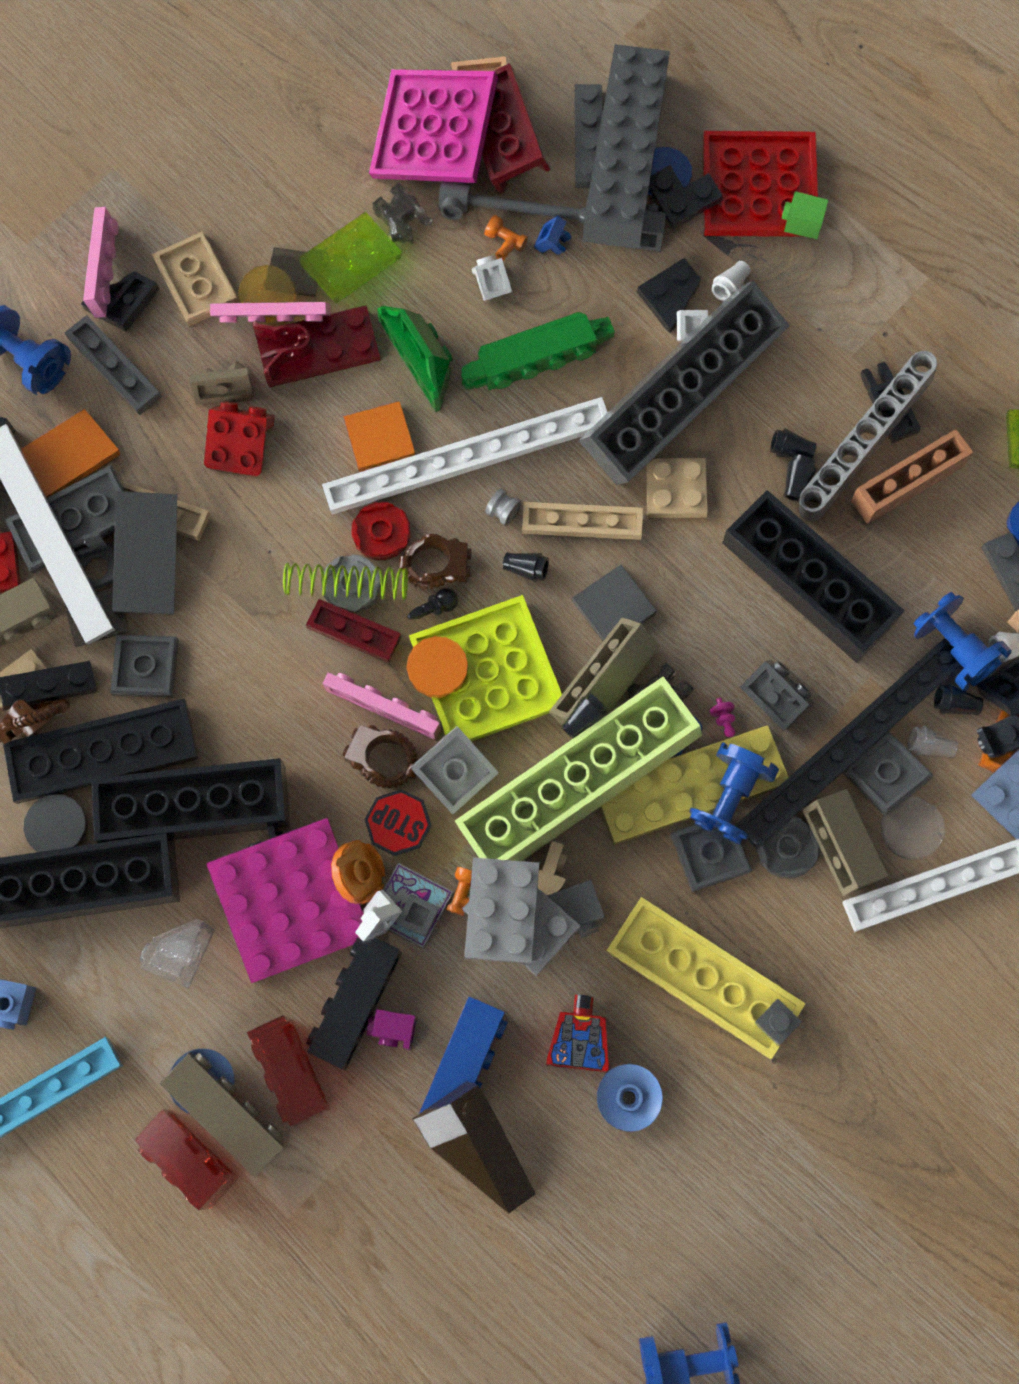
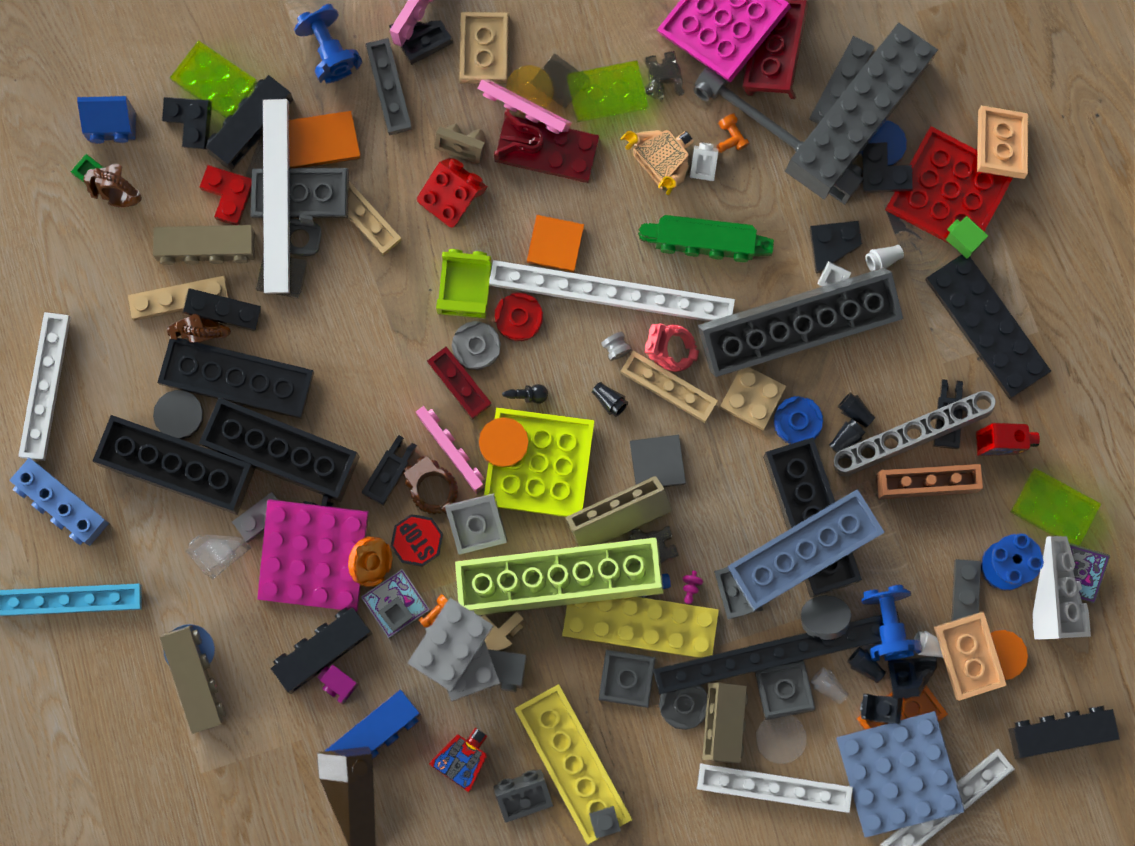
camera: 25 degrees right, 5 degrees up
(144, 553) = (338, 247): dark grey tile -> none
(144, 666) = (297, 330): dark grey tile -> none
(185, 1160) = (151, 697): clear red wedge -> none
(201, 896) = (253, 520): none -> light grey plate
(288, 1071) = (251, 674): clear red wedge -> none
(304, 524) = (464, 284): none -> lime panel
(326, 767) = (388, 472): none -> black hinge
(347, 579) = (513, 367): lime piece -> none
(378, 916) = (368, 600): white bracket -> none
(419, 350) = (619, 194): green wedge -> none
(442, 292) = (661, 155): none -> light nougat torso
(456, 569) = (558, 374): reddish brown piece -> none
(549, 483) = (657, 346): none -> coral piece
(550, 236) = (766, 151): blue tile -> none
(584, 715) = (585, 535): black cone -> none
(646, 1092) = (460, 817): medium blue dish -> none
(669, 1042) = (522, 795): none -> dark grey bracket
(736, 486) = (798, 419): none -> blue tile
(738, 782) = (669, 640): blue piece -> none
(786, 110) = (1002, 142): none -> light nougat plate
(828, 608) = (805, 549): none -> sand blue plate
(875, 296) = (988, 325): none -> black plate
(887, 672) = (825, 617): none -> dark grey tile
(971, 389) = (1005, 439): none -> red torso

